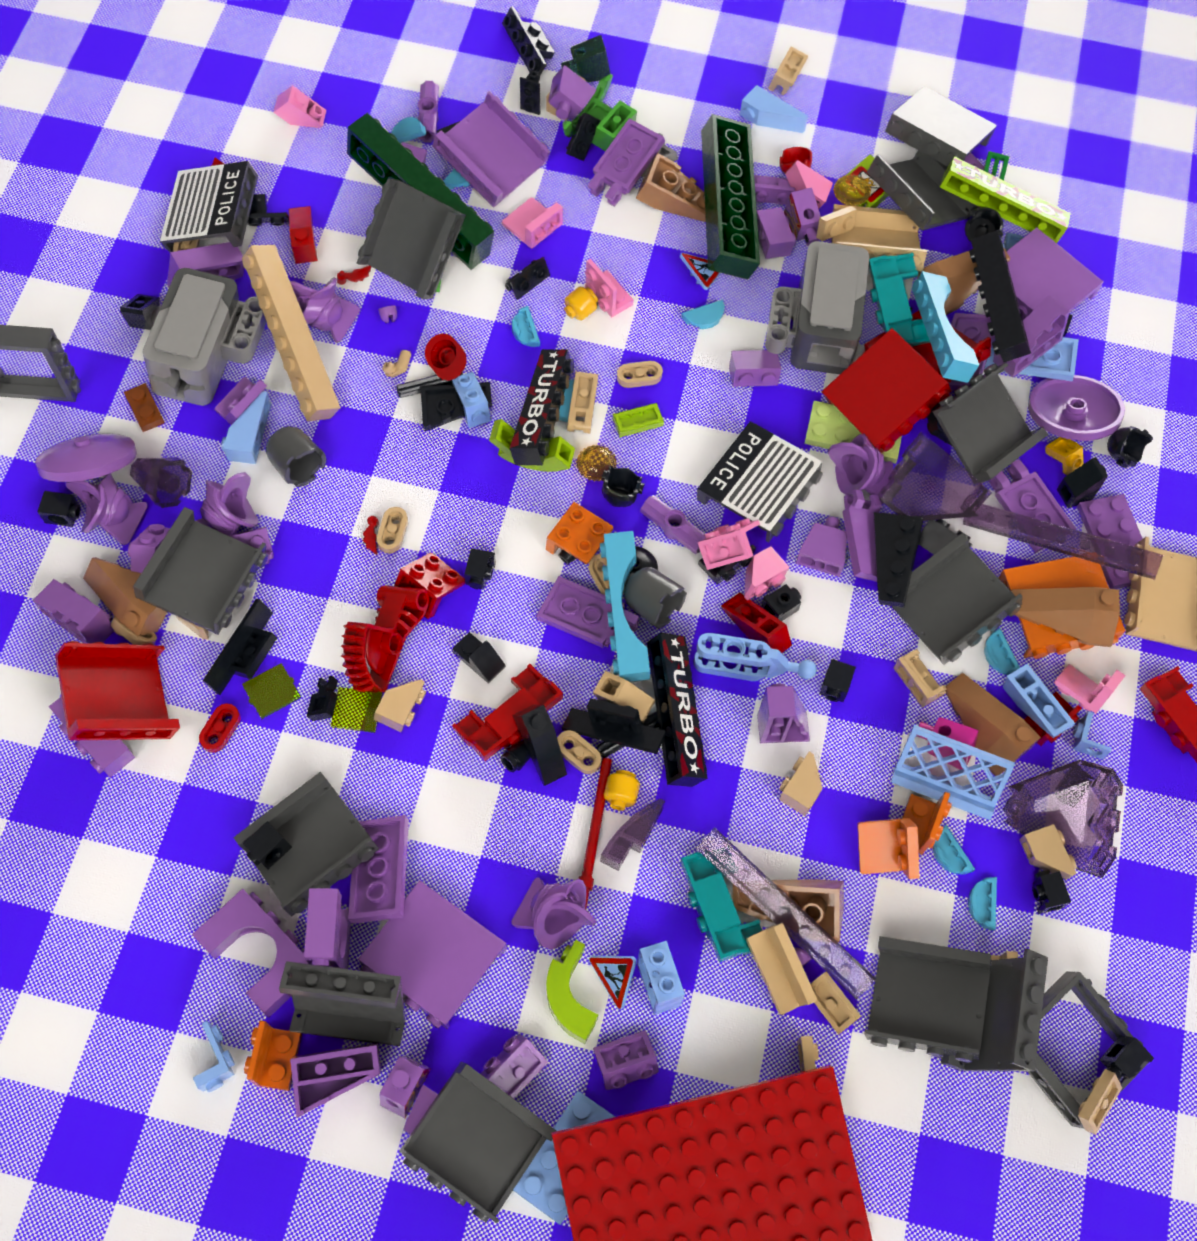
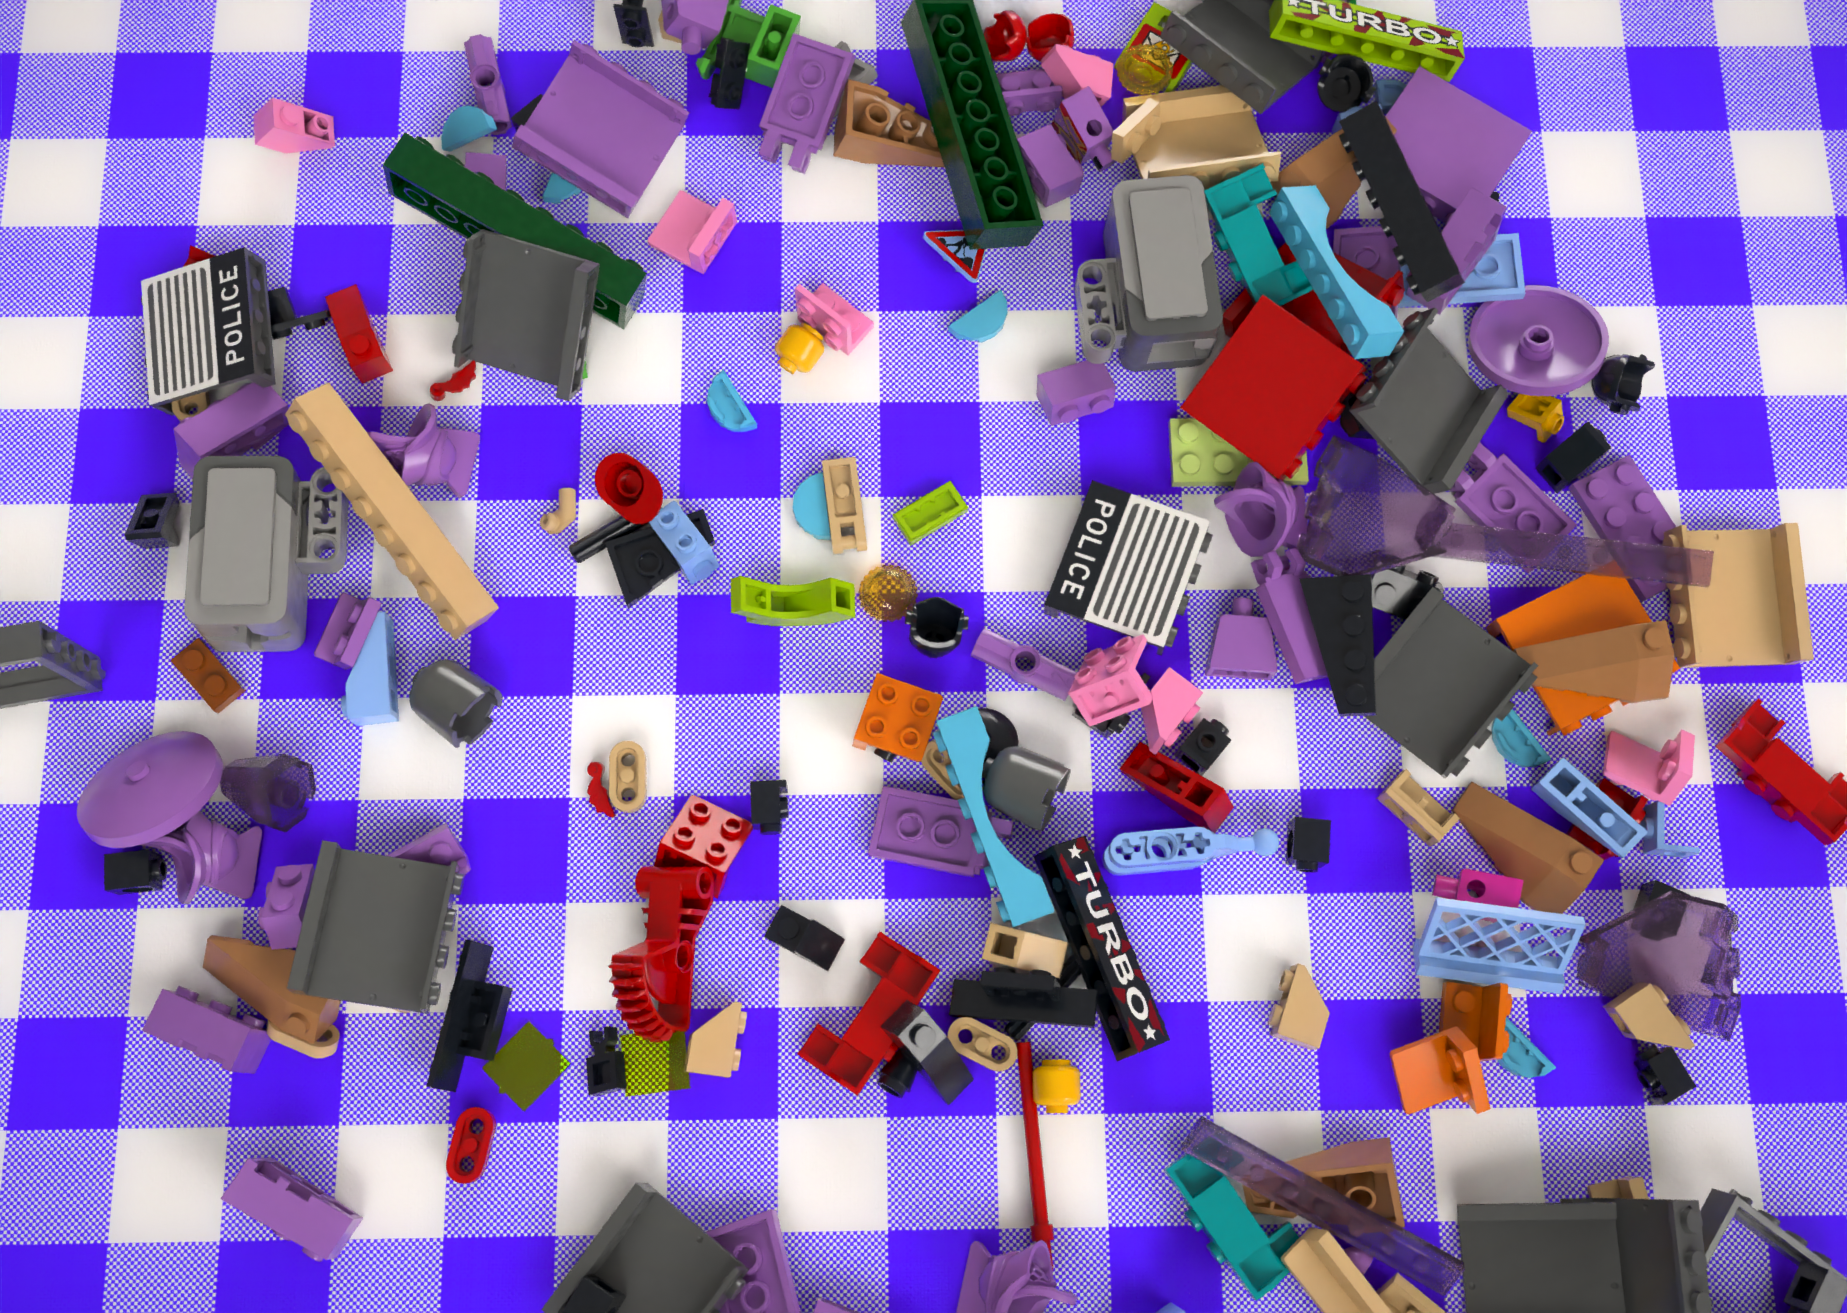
camera: 15 degrees left, 10 degrees up
(113, 692) = (304, 1145): red panel -> none
(227, 505) = (381, 810): medium lavender helmet -> none
(386, 312) = (523, 431): medium lavender hinge -> none
(529, 278) = (718, 315): black hinge -> none
(542, 407) = (792, 536): black brick -> none
(631, 835) = (1088, 1146): clear purple slope -> none
(639, 373) = (911, 438): tan plate -> none
(768, 155) = (1006, 37): none -> red hair
(782, 716) = (1248, 923): medium lavender wedge -> none
(983, 903) = (1576, 1109): medium azure tile -> none

